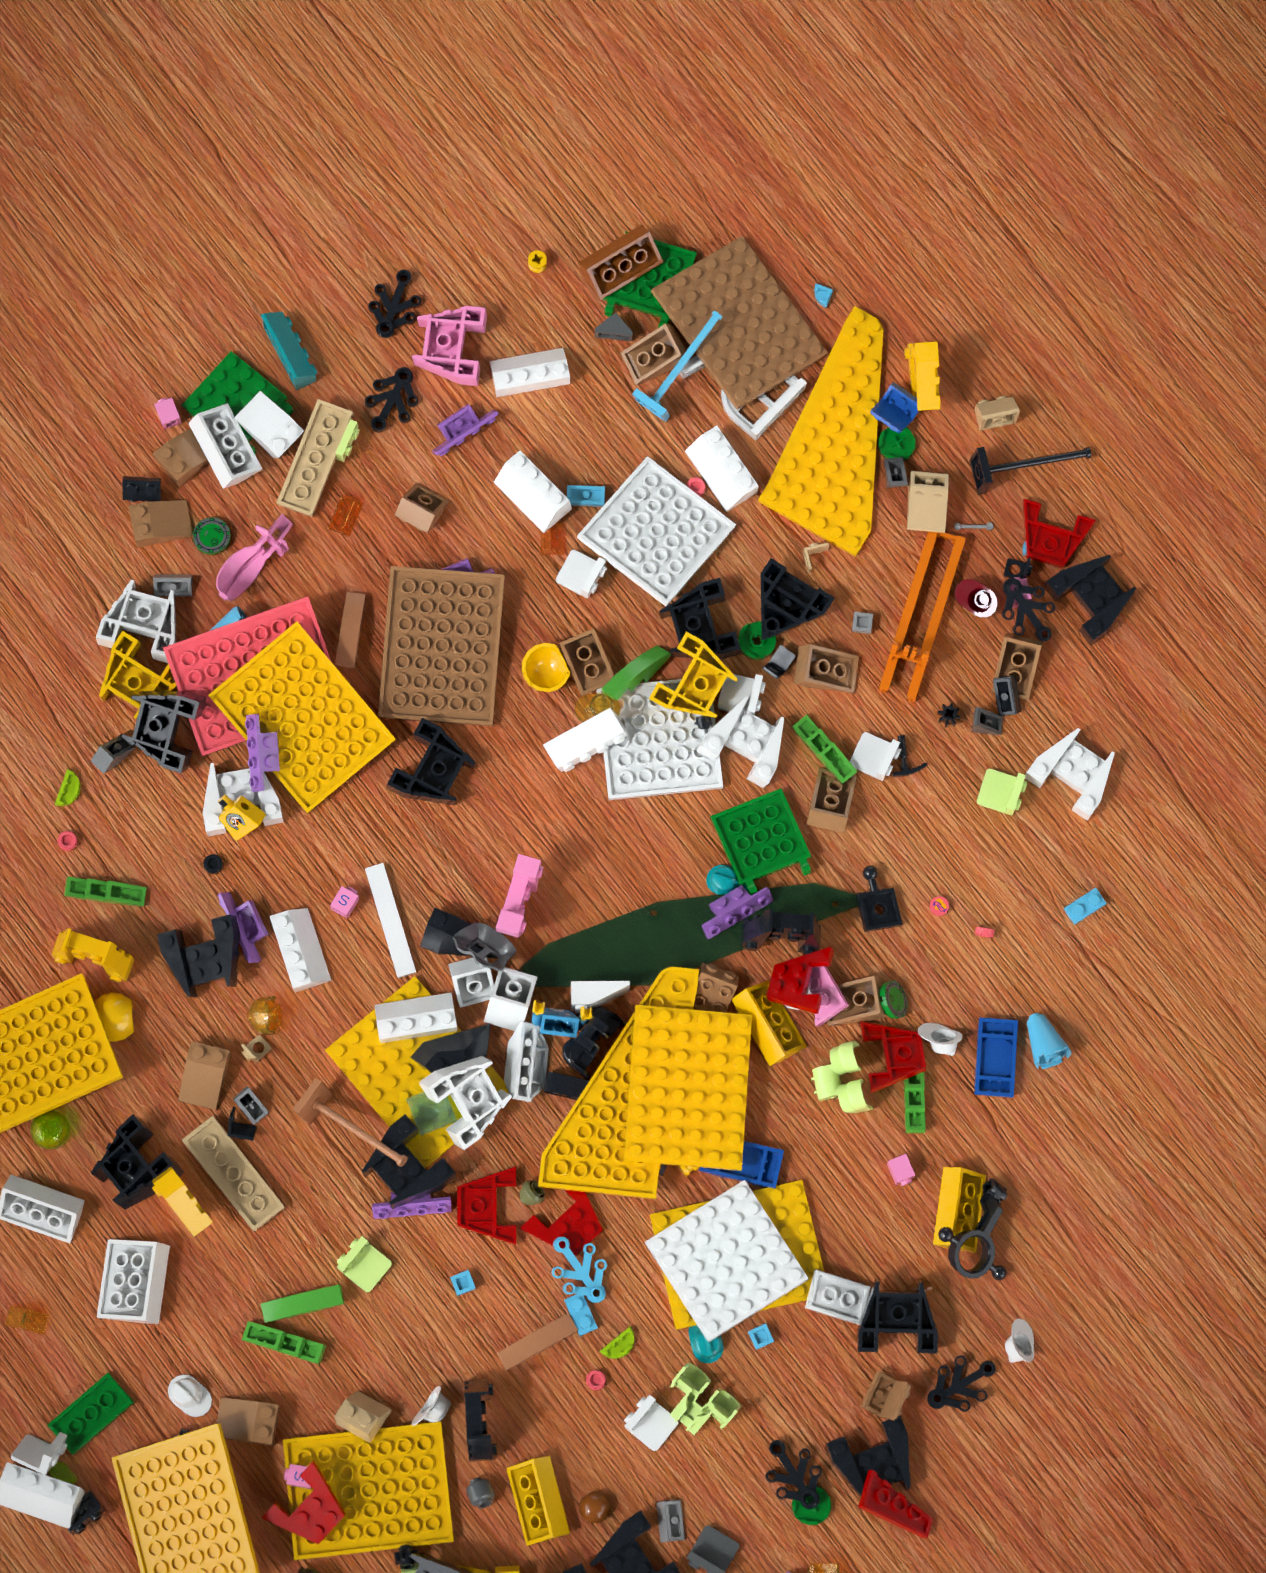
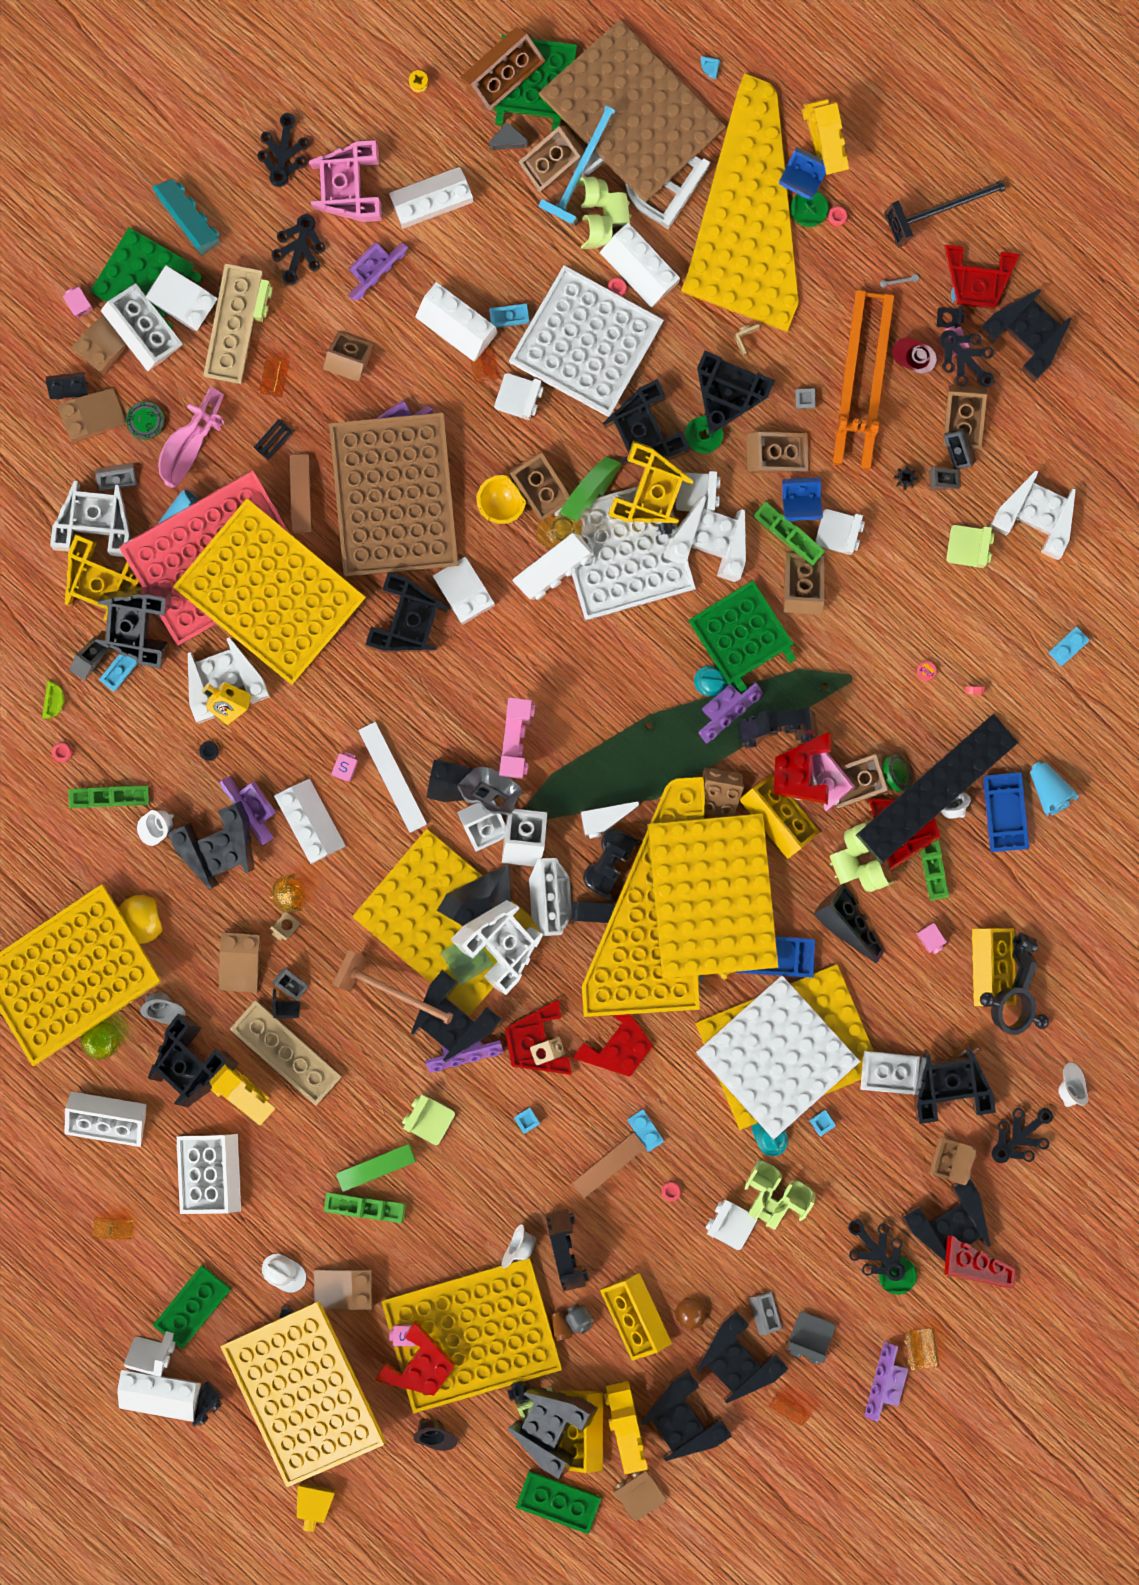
camera: 10 degrees left, 10 degrees up
(63, 1473) = (177, 1369): clear neon green cone -> none
(102, 953) = (127, 866): yellow wedge -> none
(116, 1107) = (160, 1008): none -> light grey piece
(138, 771) = (118, 672): none -> medium azure plate
(145, 927) = (154, 826): none -> white piece
(262, 752) = (236, 634): medium lavender bracket -> none
(345, 565) = (283, 427): none -> black tile
(362, 1416) = (453, 1265): tan slope -> none
(415, 1018) = (435, 870): white slope -> none
(460, 1499) = (560, 1327): none -> dark orange cone
(494, 751) = (464, 591): none -> white slope
(502, 1215) = (553, 1048): none -> tan bracket
(531, 1194) = (577, 1023): olive cone -> none
(559, 1021) = (576, 851): dark azure torso -> none
(581, 1271) = (639, 1091): medium azure plant -> none
(620, 1345) = (688, 1154): lime tile -> none
(706, 411) = (614, 208): none -> yellowish green piece
(779, 662) = (730, 453): bracket -> none
(815, 1134) = (843, 918): none -> black wedge
(843, 716) = (802, 499): none -> blue bracket
(885, 898) = (873, 673): black plate -> none
(895, 473) = (813, 240): dark grey slope -> none
(904, 766) = (862, 510): black piece -> none
(923, 455) = (837, 216): none -> coral tile
(927, 501) = (850, 265): tan slope -> none
(929, 1020) = (936, 789): none -> black plate
(996, 413) = (904, 160): tan slope -> none

